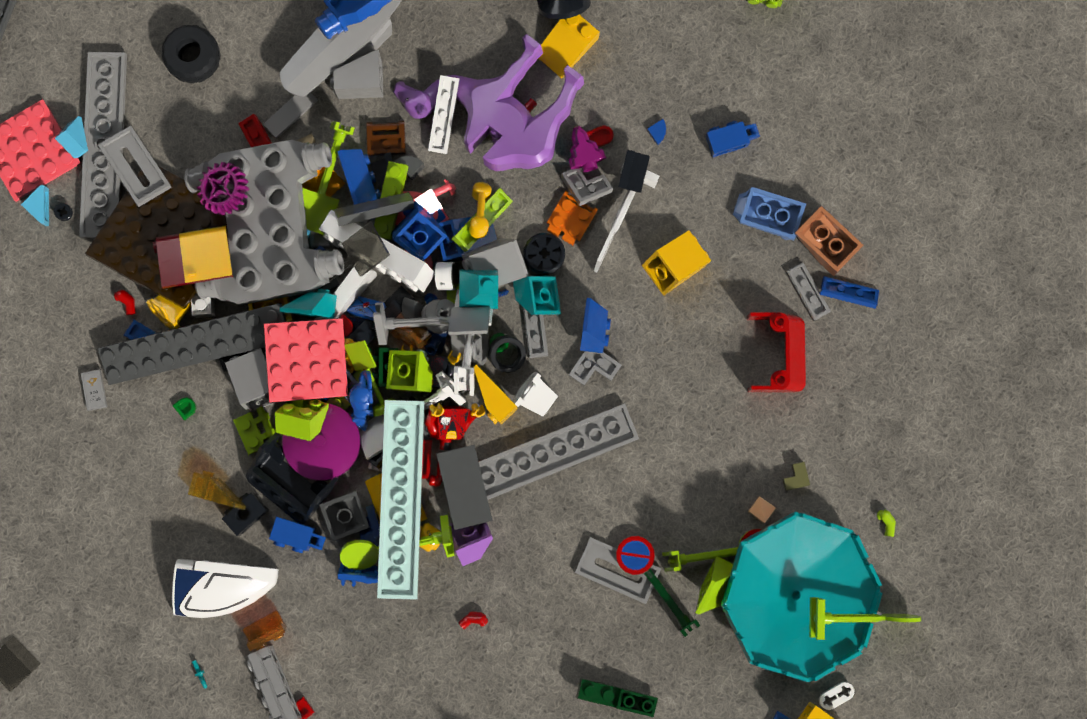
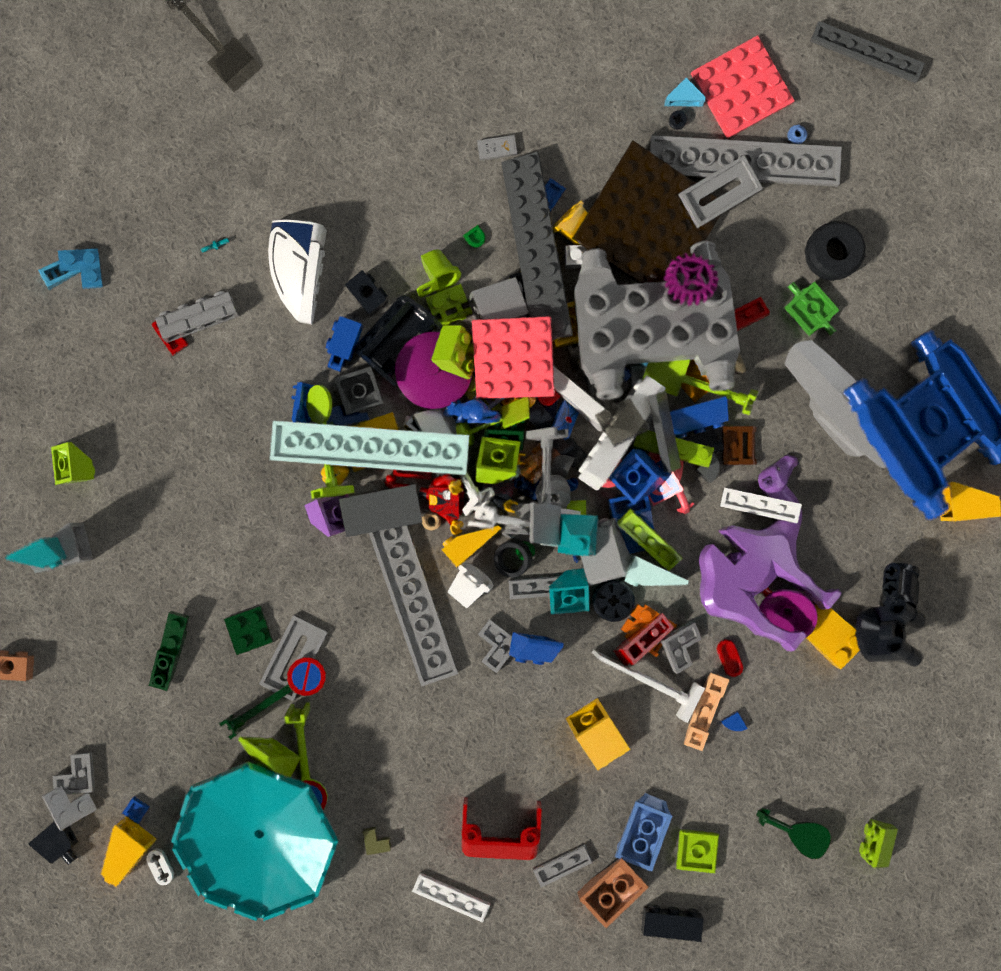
camera: 95 degrees right, 5 degrees up
(73, 138) = (752, 131): medium azure slope -> none
(77, 100) = (793, 138): none -> medium blue plate
(127, 299) = (586, 182): red arm -> none
(193, 256) = (622, 248): yellow door -> none
(214, 490) = (391, 263): clear yellow slope -> none
(222, 440) = (439, 271): none -> lime container
(248, 74) = (811, 308): none -> bright green plate
(264, 630) = (251, 309): clear orange bracket -> none
(289, 114) = (768, 348): light grey tile -> none
(313, 304) = (568, 366): teal slope -> none
(359, 78) = (802, 421): light grey slope -> none
(446, 276) = (593, 501): white piece -> none
(469, 432) = (437, 520): none -> tan plate
(473, 617) = (254, 514): red arm -> none
(479, 224) = (643, 537): yellow piece -> none
(514, 221) = (647, 574): none -> light aqua slope
(548, 70) = (800, 617): none -> magenta dish
(581, 221) = (643, 640): none -> red slope
(584, 152) = (715, 647): magenta rock -> none
(592, 617) = (248, 630): none -> dark green plate
(634, 171) = (692, 697): black panel -> none
(660, 164) = (704, 711): none -> light nougat slope
(730, 138) = (724, 797): blue brick -> none
(761, 509) = (345, 804): light nougat slope -> none
(764, 57) = (808, 837): none -> dark green piece
(785, 161) = (697, 851): none -> lime plate
(819, 618) = (230, 859): lime piece -> none
(847, 399) = (451, 897): none -> white tile
(849, 292) = (559, 907): blue tile -> none
(856, 182) = (672, 923): none -> black brick
(889, 521) = (327, 931): lime arm -> none

